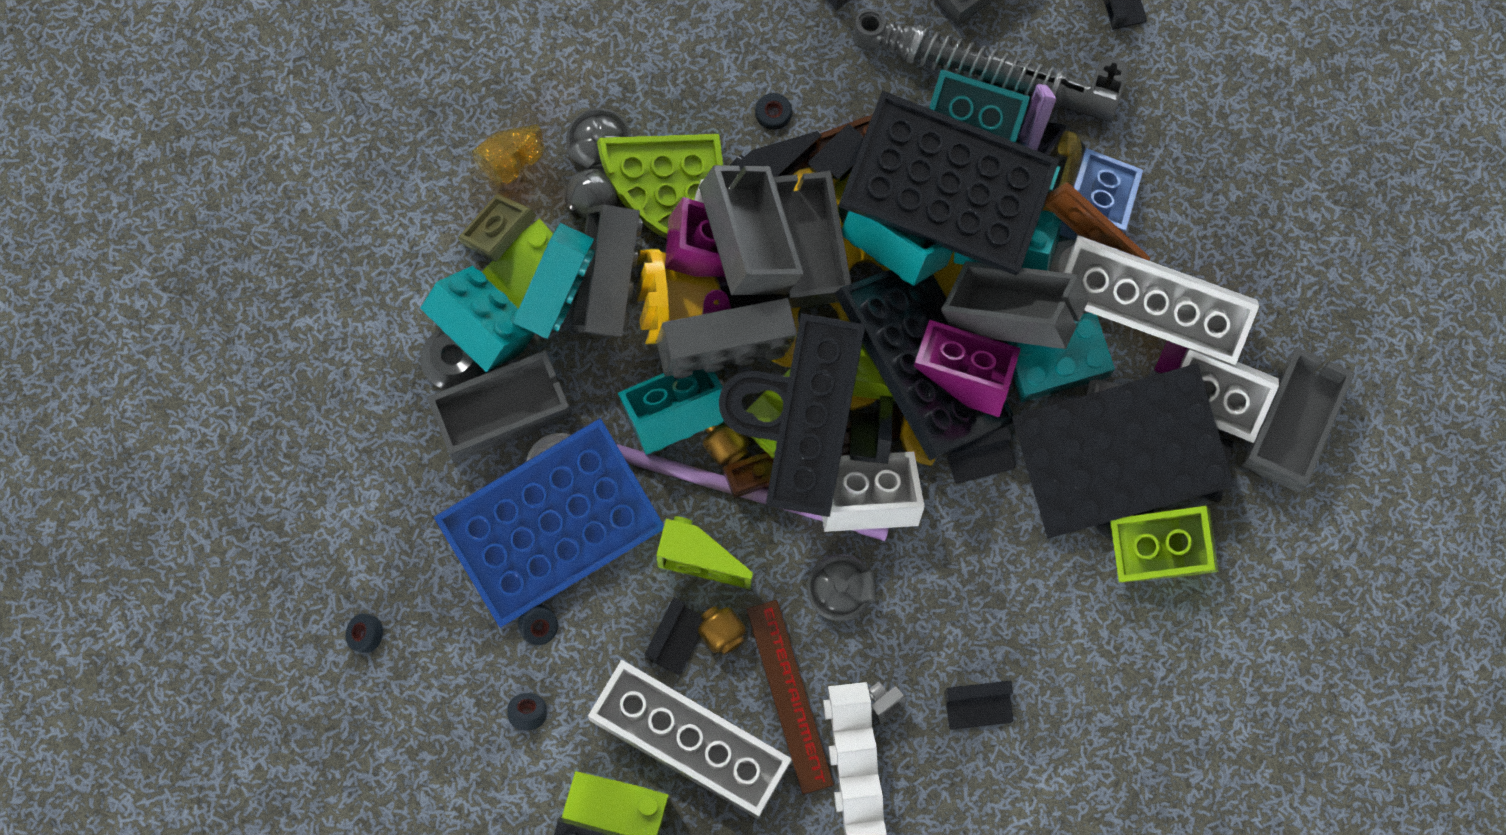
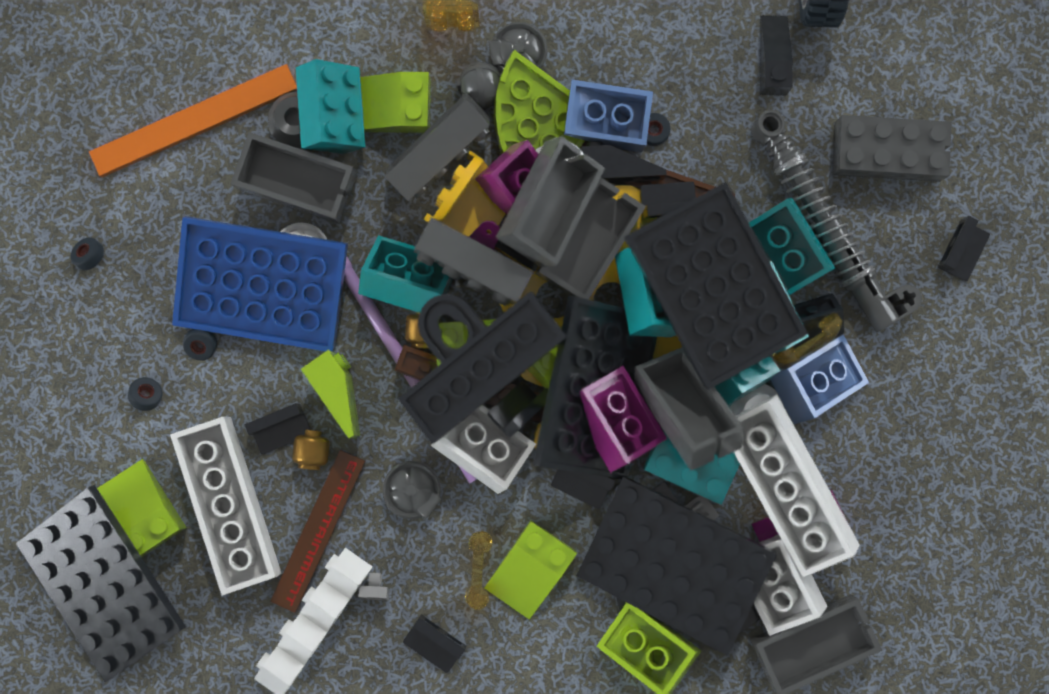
camera: 45 degrees right, 10 degrees up
(359, 437) = (193, 121): none -> orange tile
(496, 227) = (397, 54): olive tile -> none
(555, 281) = (394, 125): teal brick -> none
(728, 126) = (609, 115): none -> medium blue slope
(978, 630) = (475, 595): none -> clear yellow bar
(1004, 566) = (530, 569): none -> lime slope
(1036, 117) = (825, 286): lavender tile -> none
(1088, 220) = (794, 394): dark orange tile -> none

